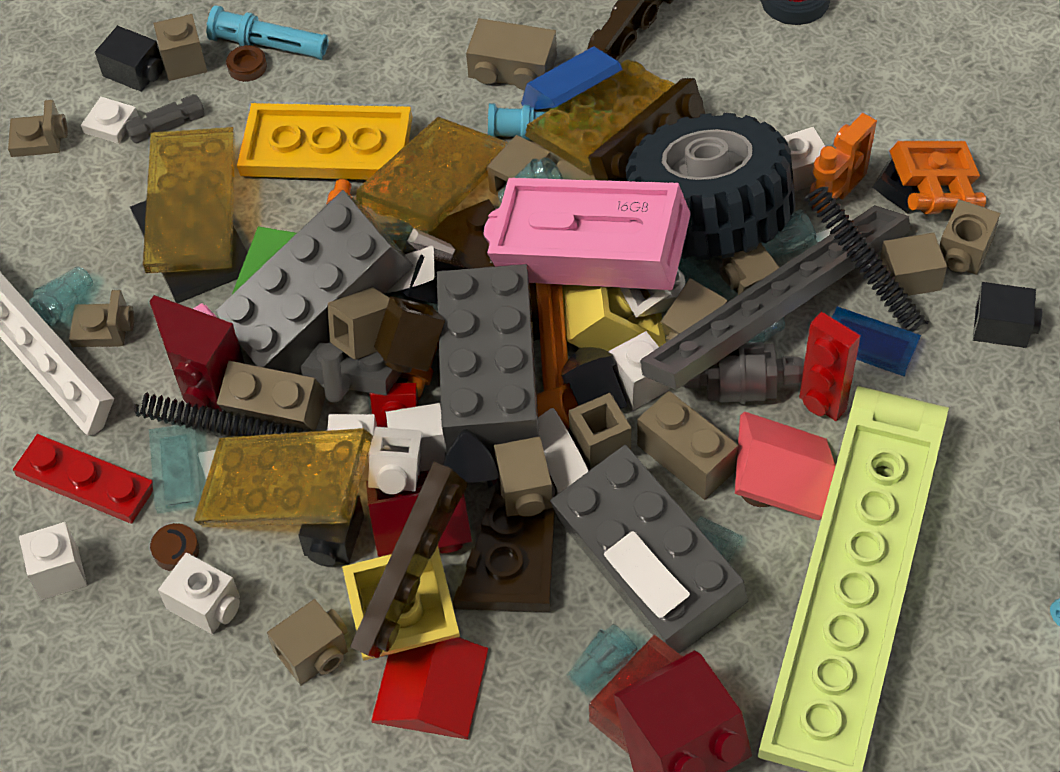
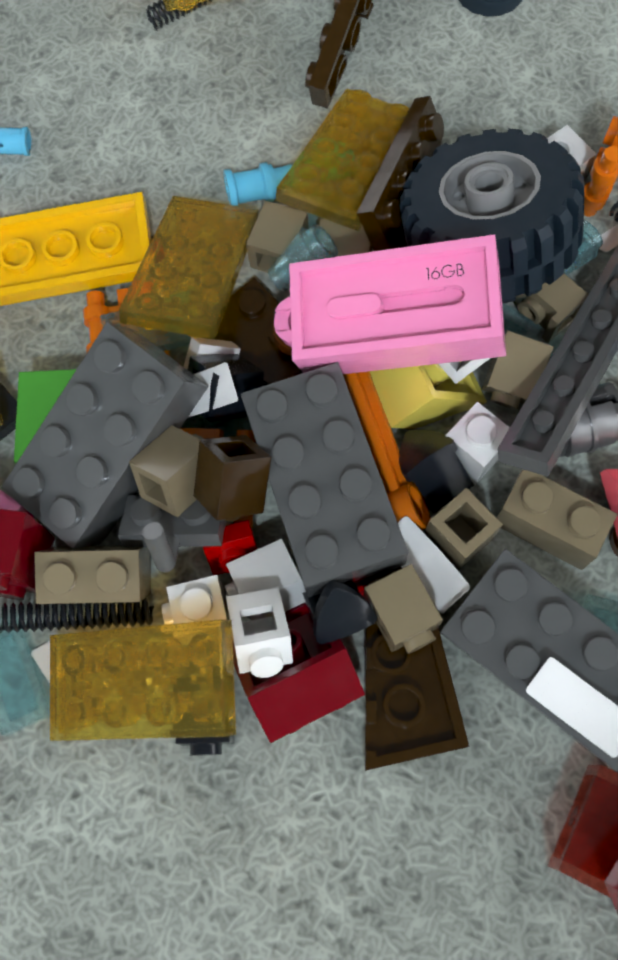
camera: 15 degrees left, 15 degrees up
(171, 544) = (37, 776): reddish brown tile -> none
(200, 594) = (84, 836): white brick -> none
(310, 641) = (224, 864): dark tan brick -> none
(409, 558) = (329, 758): dark brown wing -> none
(424, 620) = (315, 803): light yellow slope -> none
(432, 688) = (367, 872): red slope -> none
(510, 53) = (228, 108): dark tan brick -> none
(570, 79) = (303, 125): blue slope -> none
(602, 659) = (544, 796): clear light blue cone -> none

